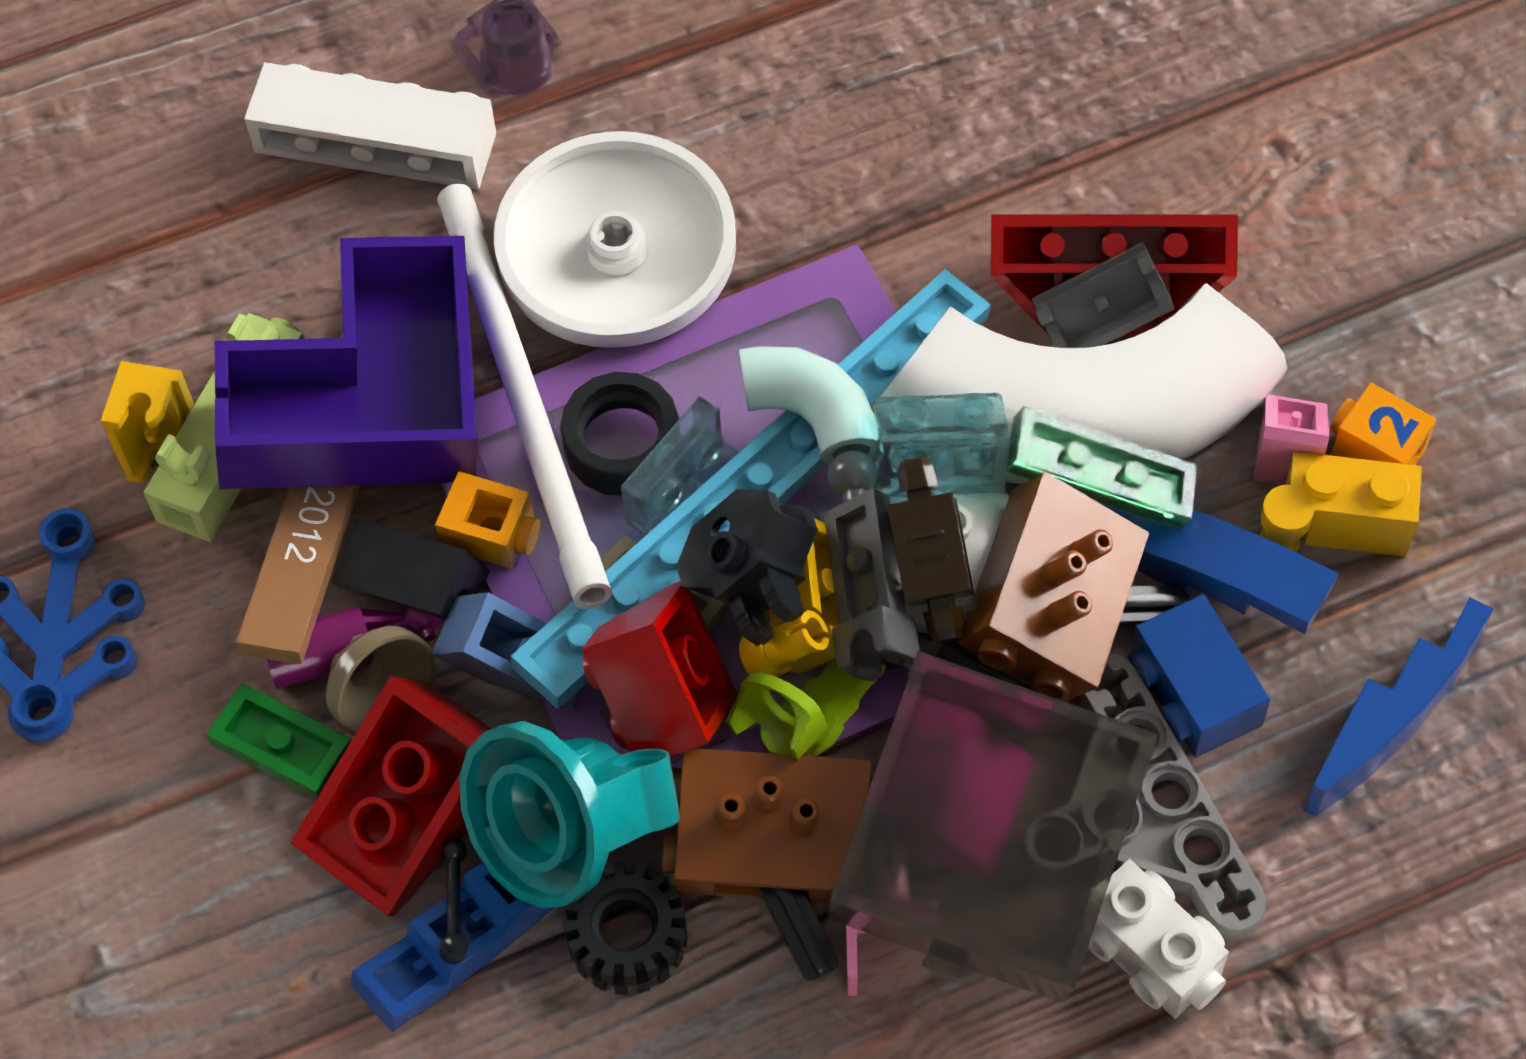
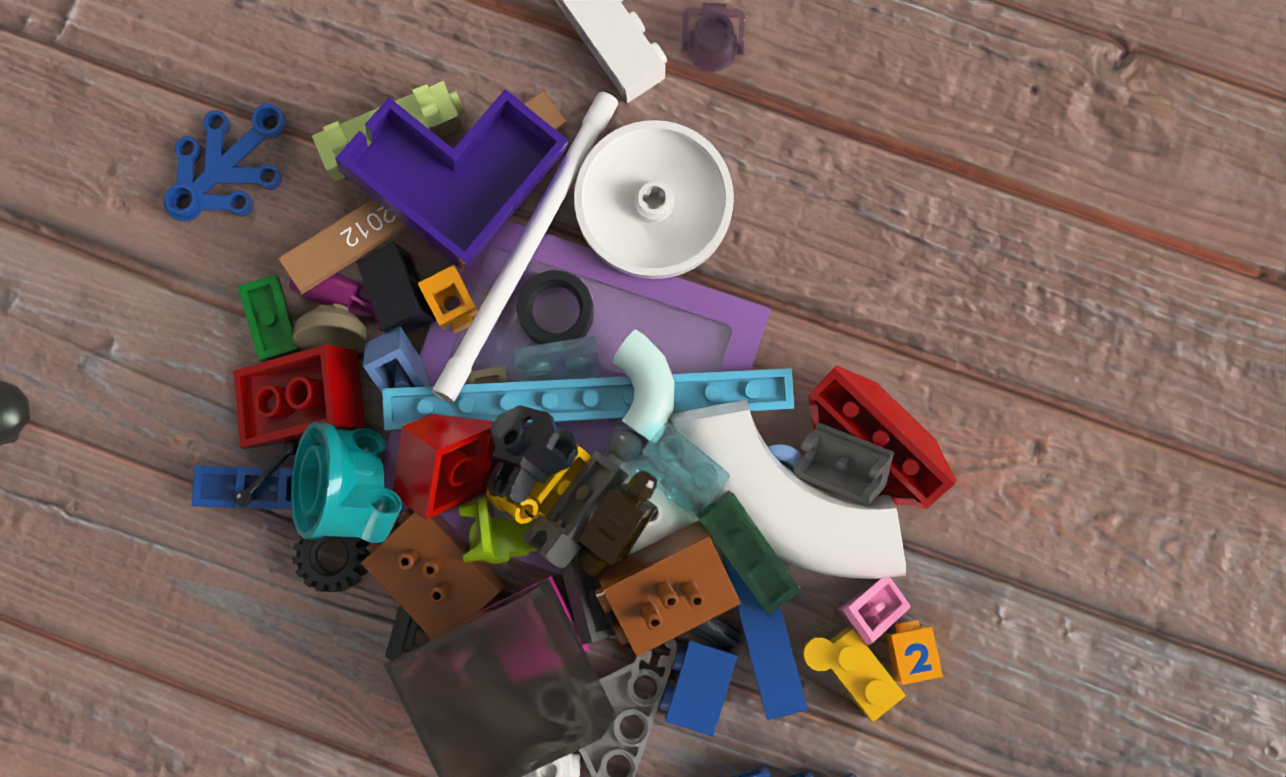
camera: 45 degrees right, 20 degrees up
(141, 412) = (342, 94): yellow hinge -> none

